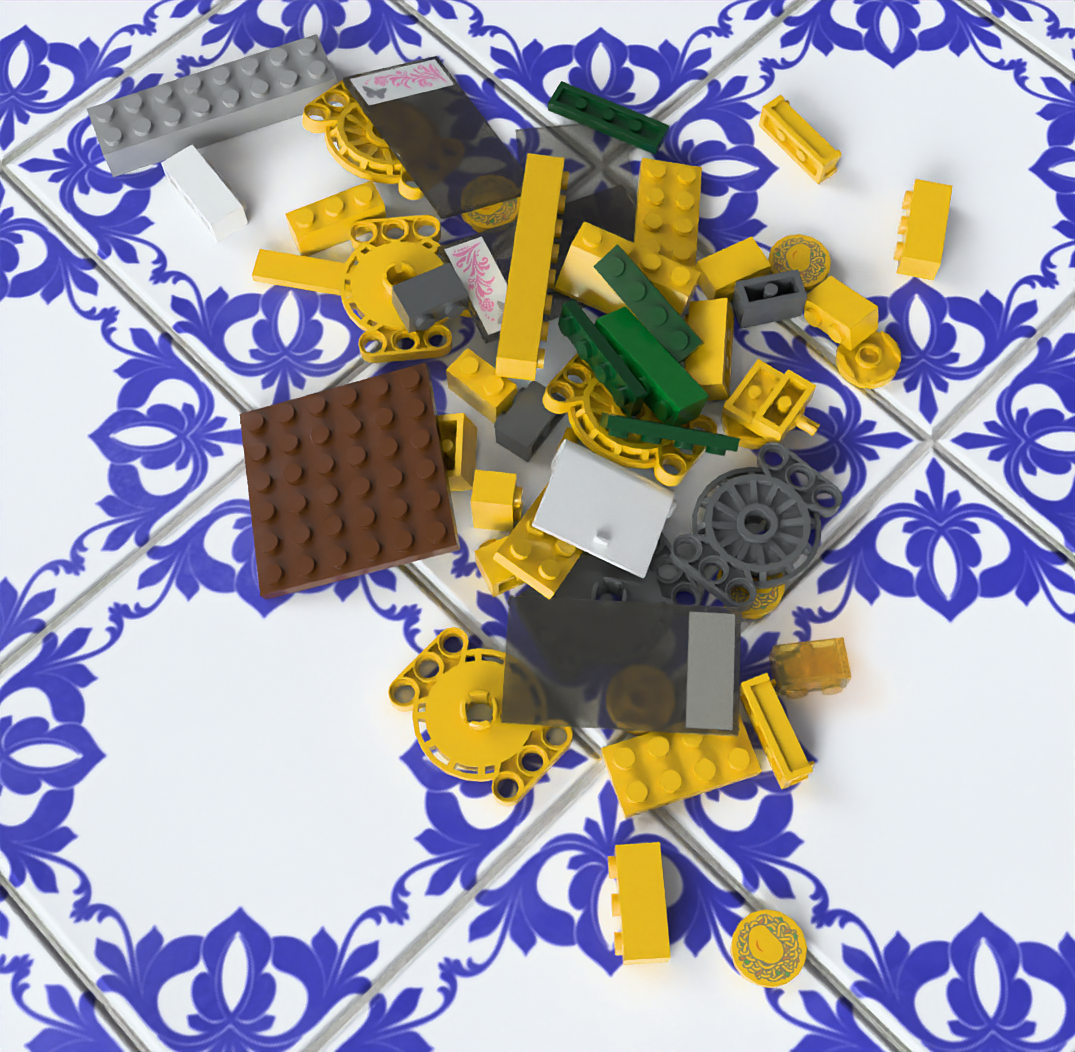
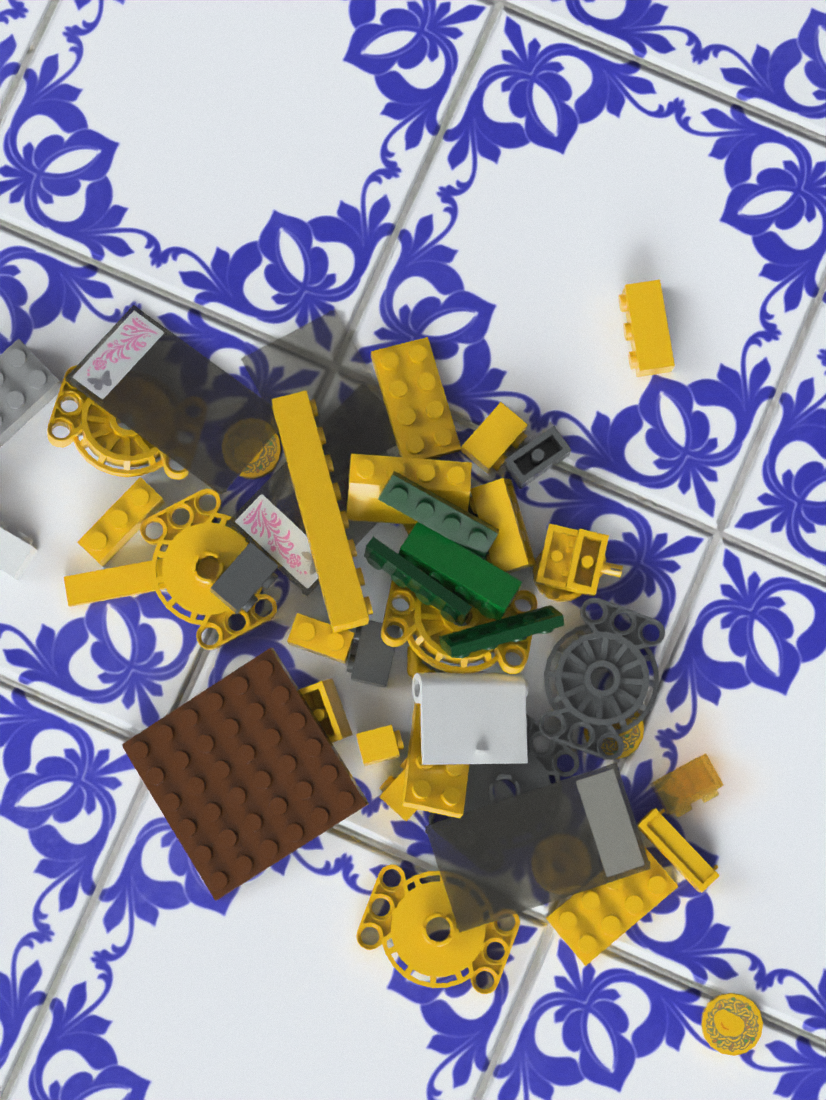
camera: 25 degrees left, 15 degrees up
(608, 117) = (323, 318): dark green plate -> none
(639, 904) = (622, 1031): yellow brick -> none
(799, 139) = (505, 274): yellow container -> none
(803, 254) = (548, 402): tile -> none
(841, 313) = (603, 447): yellow brick -> none
(871, 362) = (640, 475): yellow tile -> none

